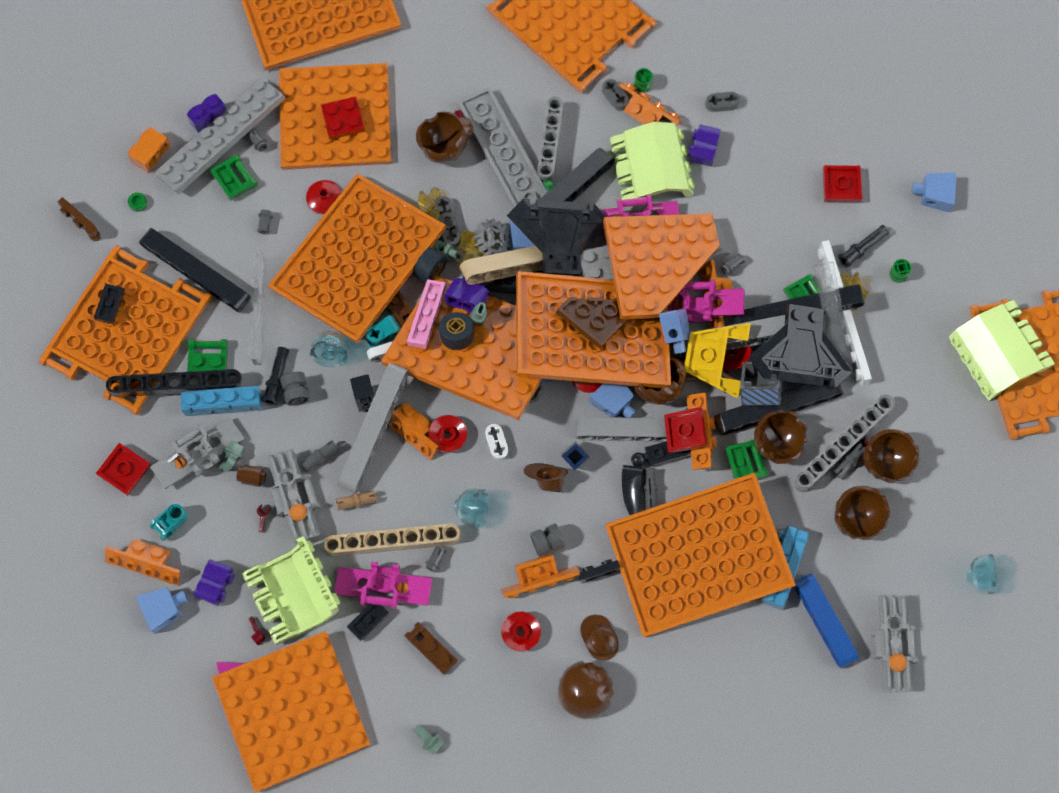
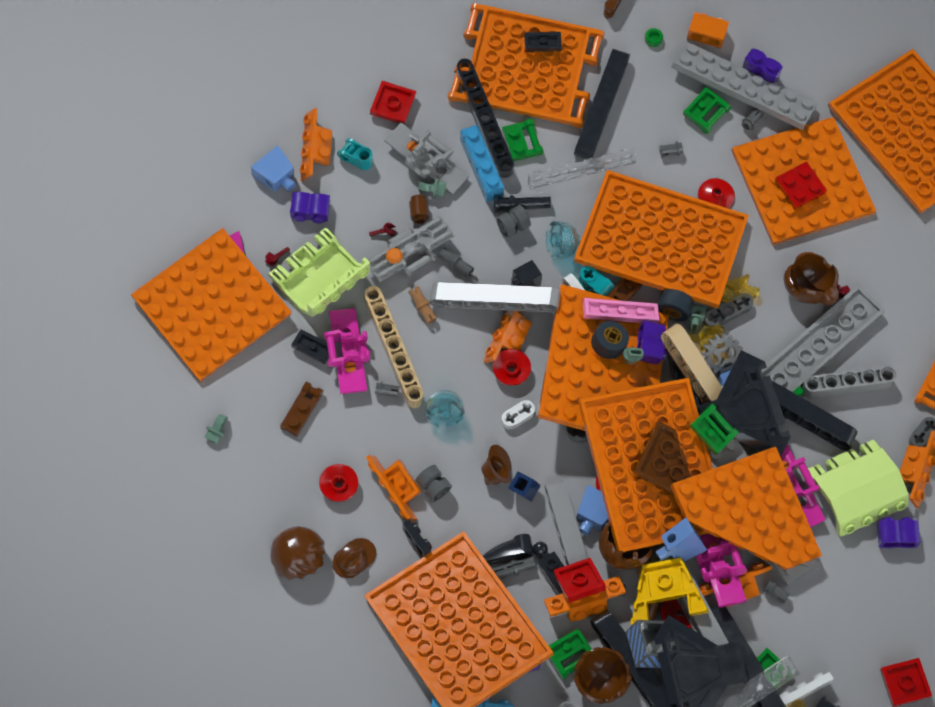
camera: 70 degrees right, 5 degrees down
(576, 269) = (710, 432): none -> green plate

